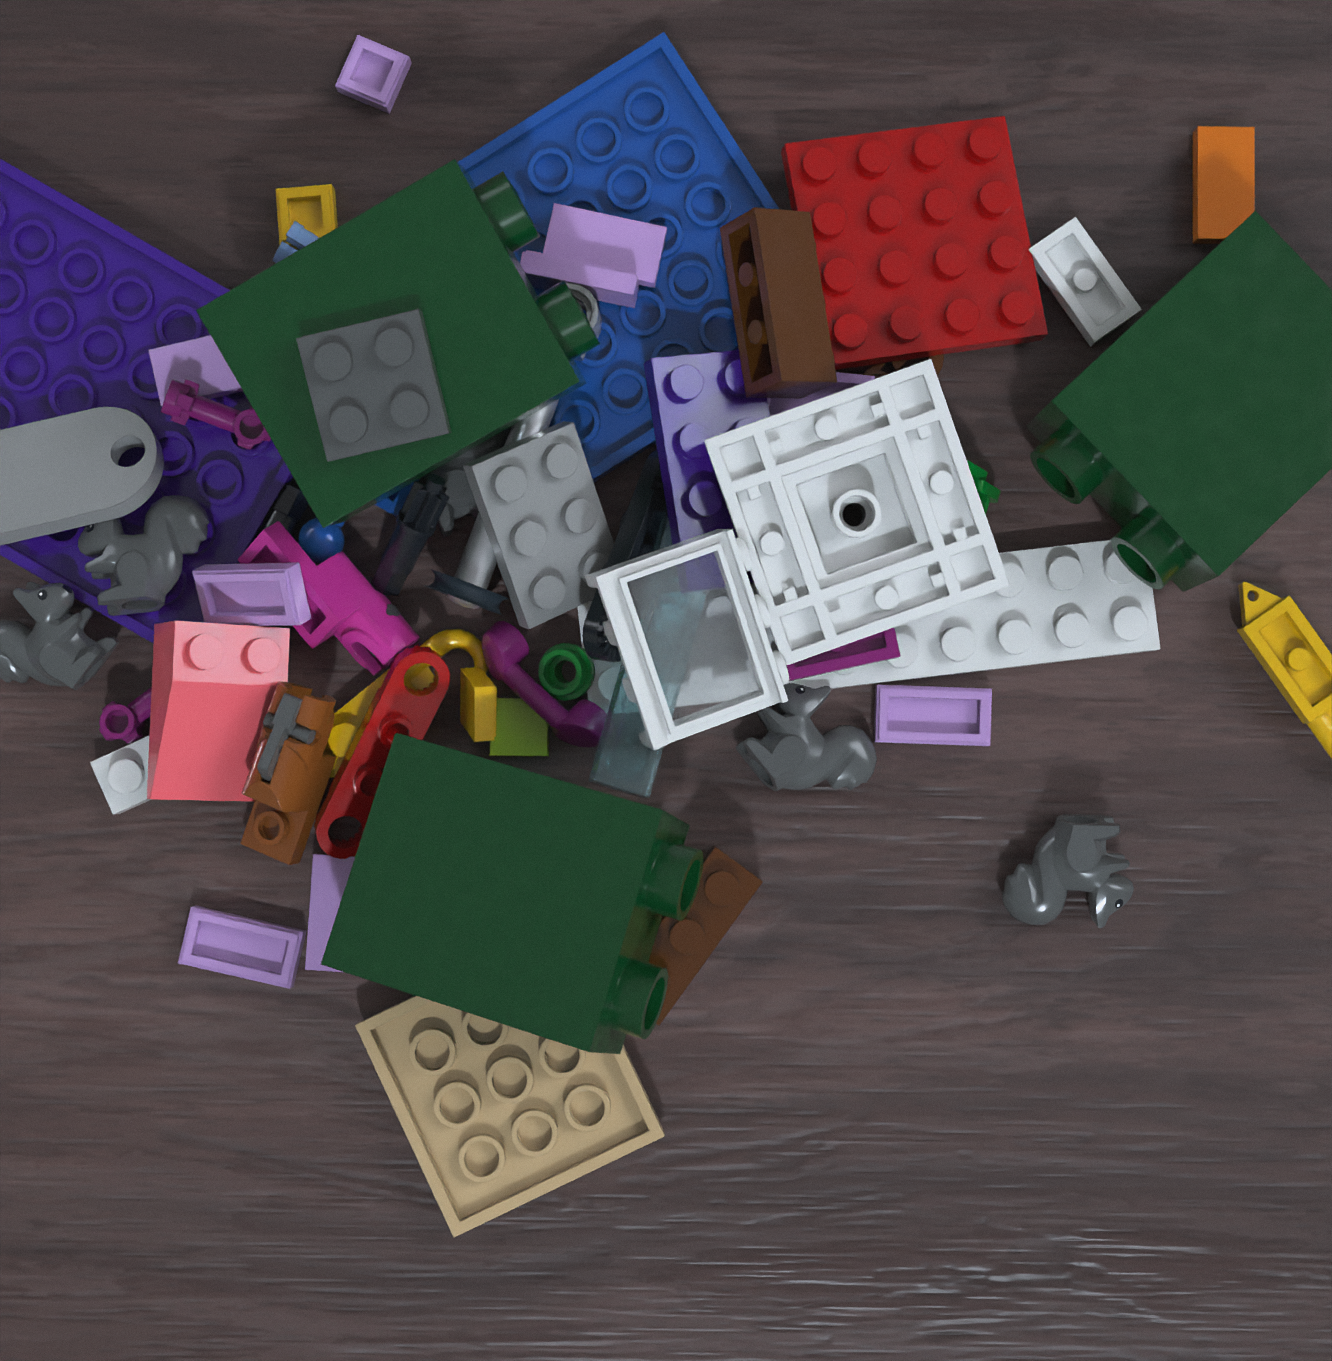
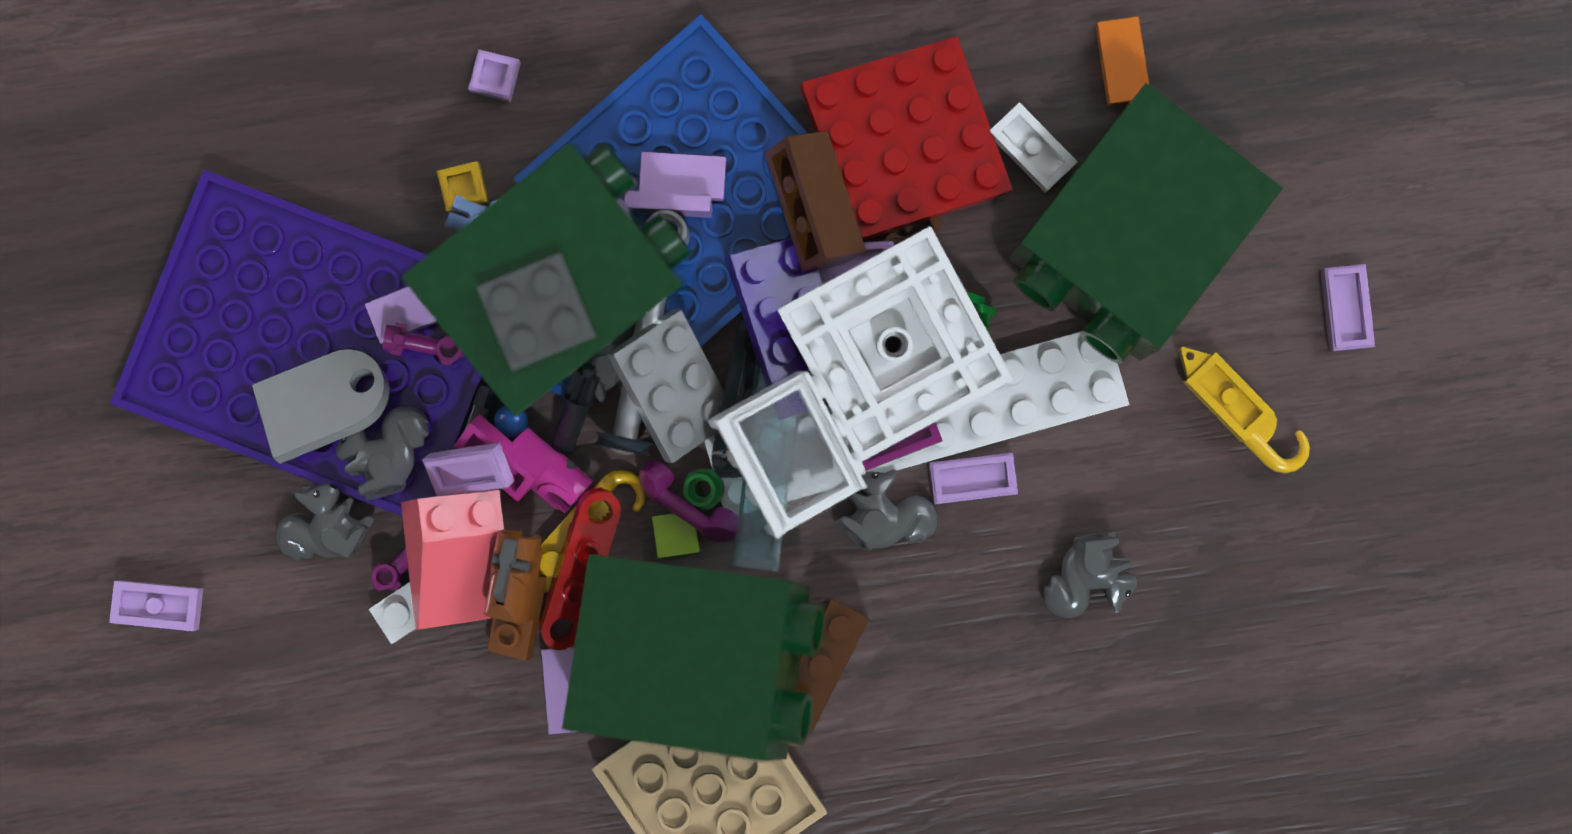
camera: 15 degrees left, 0 degrees up
(242, 947) = (500, 725): lavender tile -> none
(478, 704) = (643, 523): yellow tile -> none

